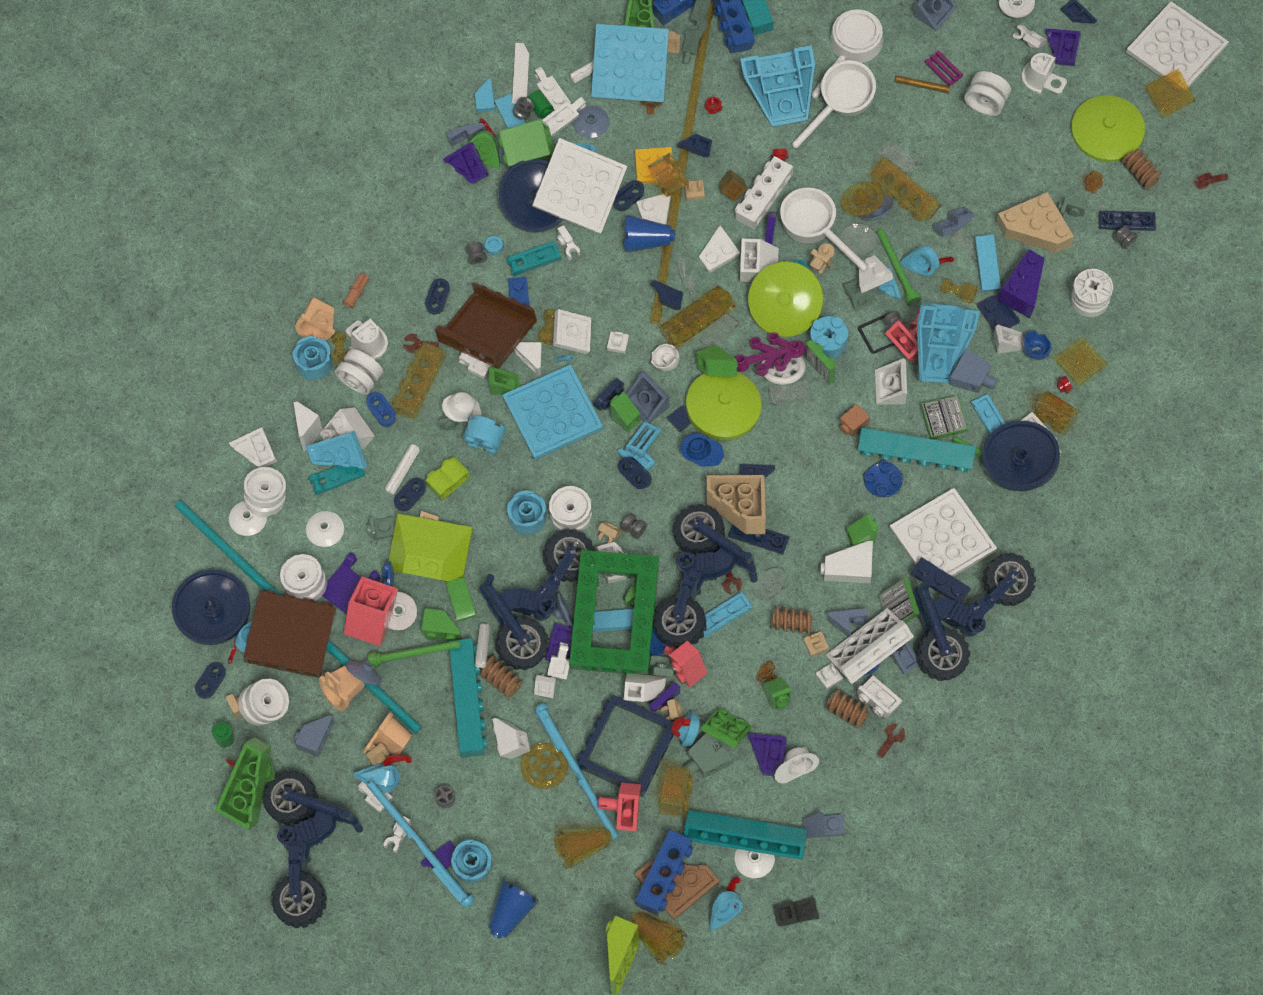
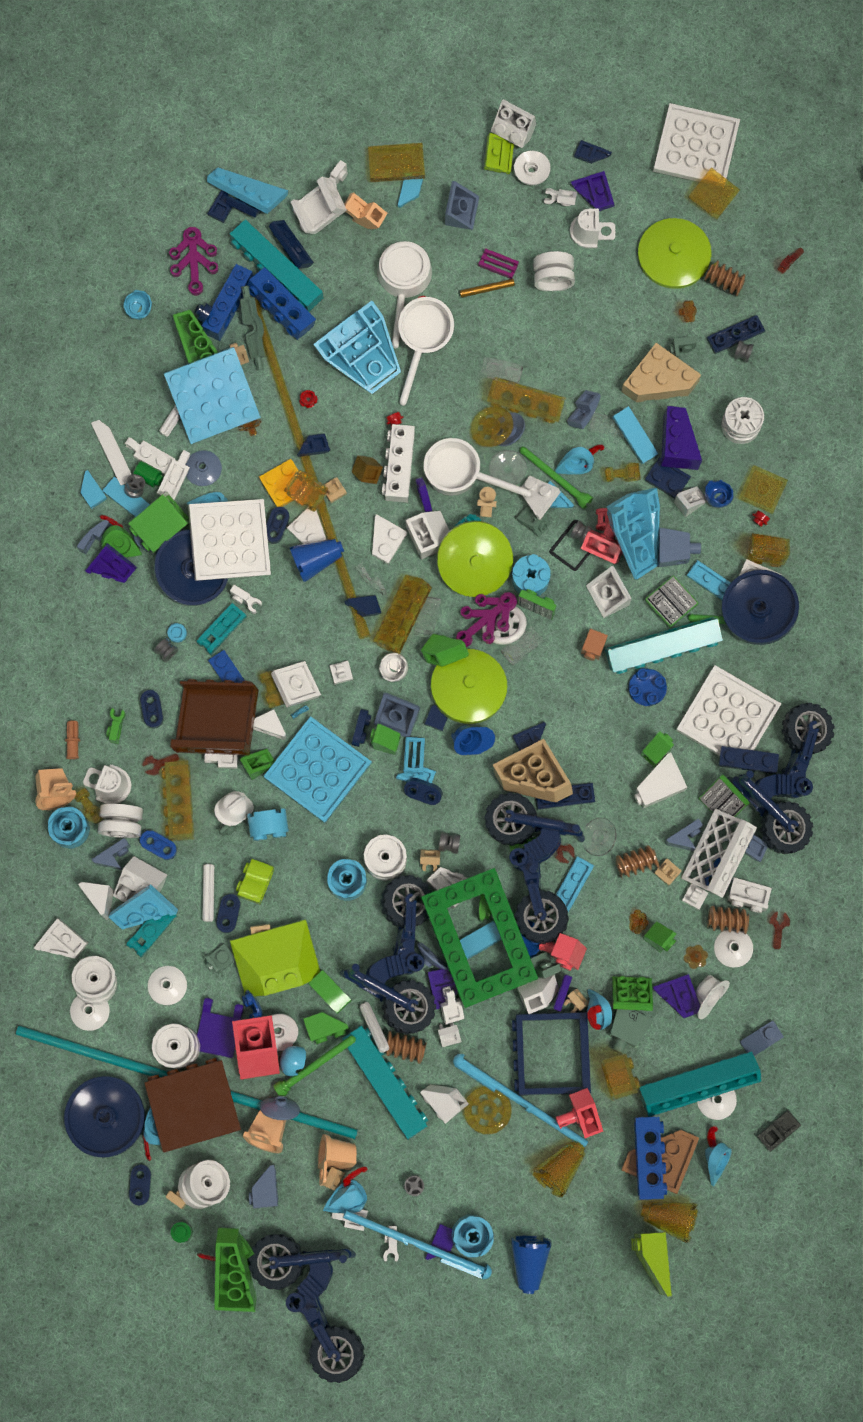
camera: 30 degrees left, 10 degrees up
(332, 398) = (107, 857): none -> sand blue slope
(396, 298) = (114, 731): none -> bright green plate
(396, 637) = (292, 1059): none -> medium azure hair
(802, 732) = (692, 960): none -> clear orange plant
(840, 746) = (729, 957): none -> white dish

